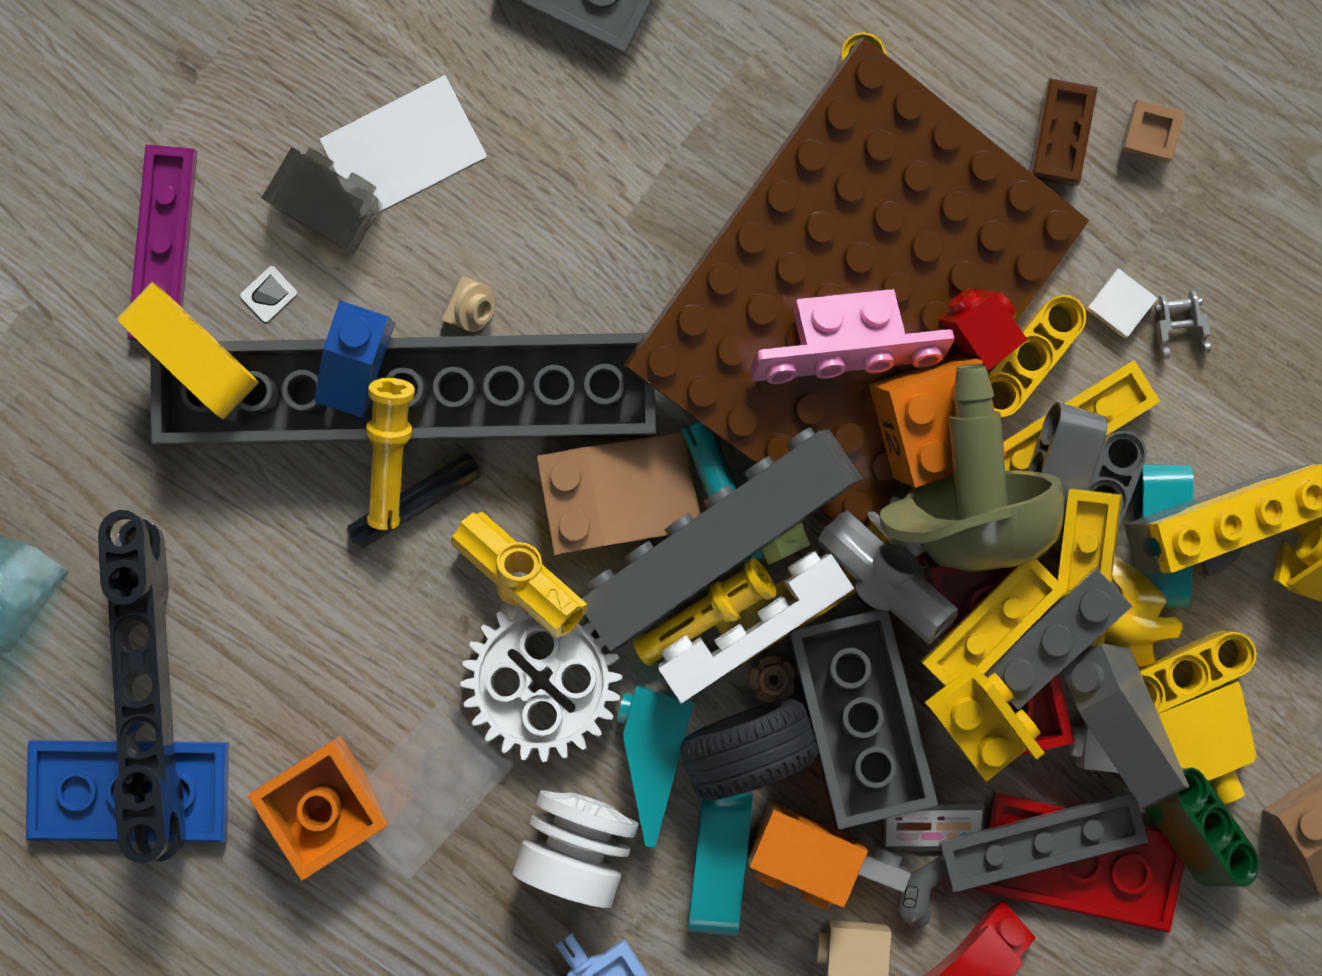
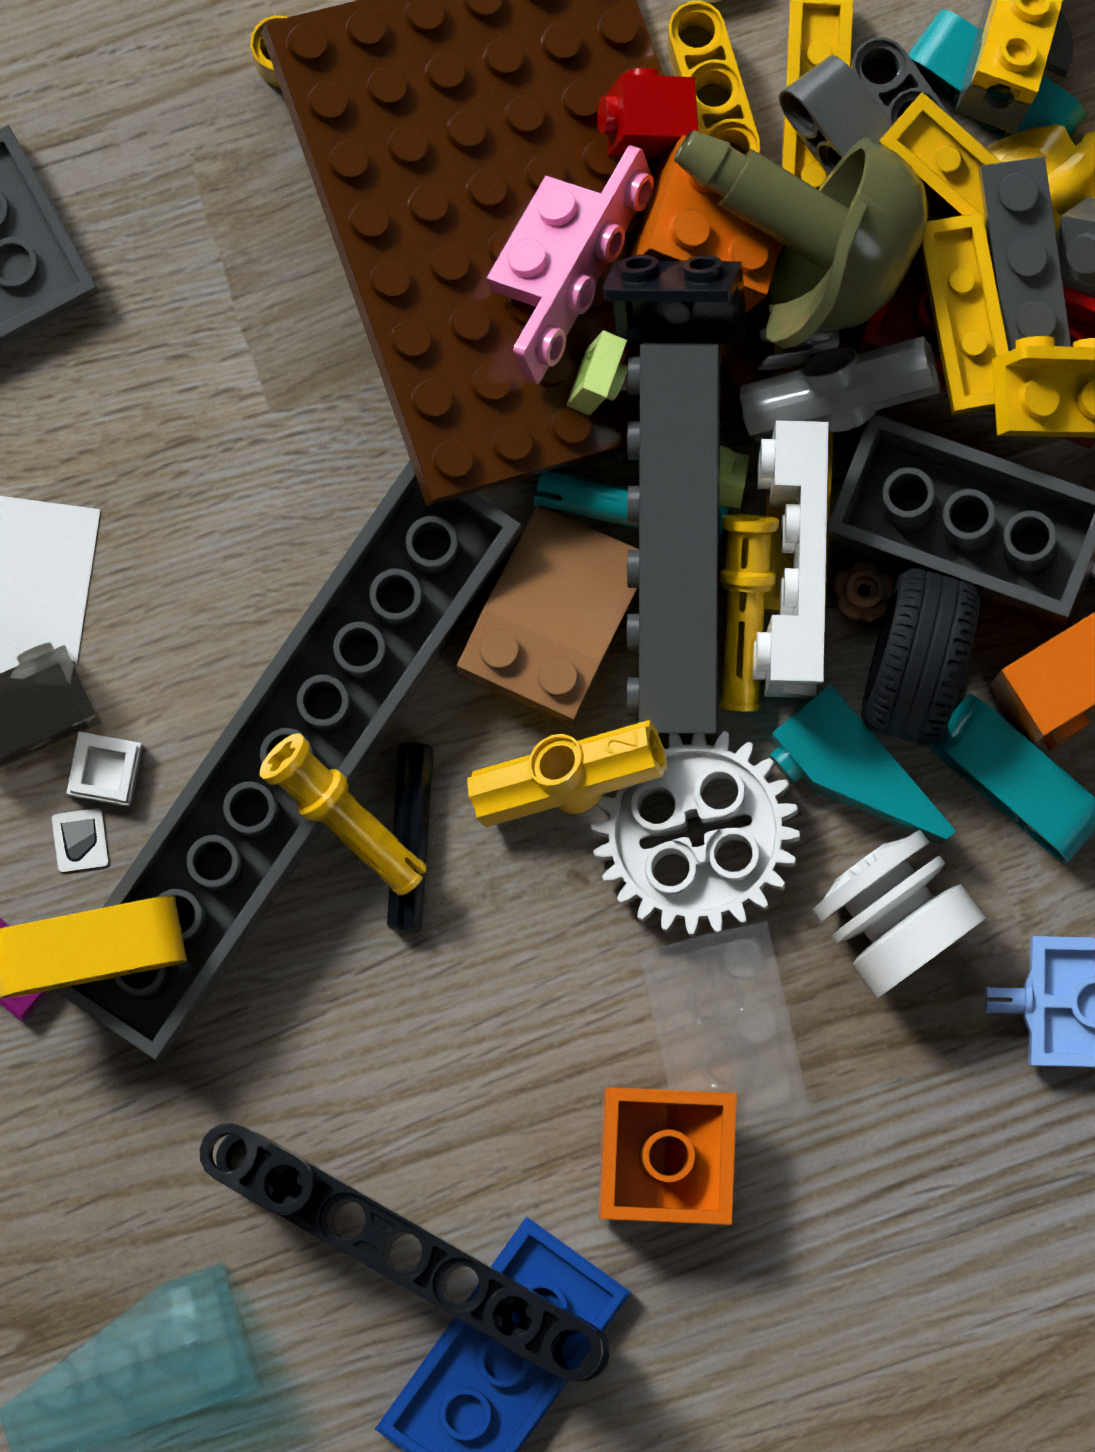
camera: 55 degrees left, 5 degrees down
(322, 278) = (104, 769): none -> white tile
(352, 358) = (220, 779): blue slope -> none
(470, 305) = (245, 634): tan plate -> none
(785, 416) = (599, 374): none -> yellowish green plate
(869, 432) = (677, 299): none -> black bracket

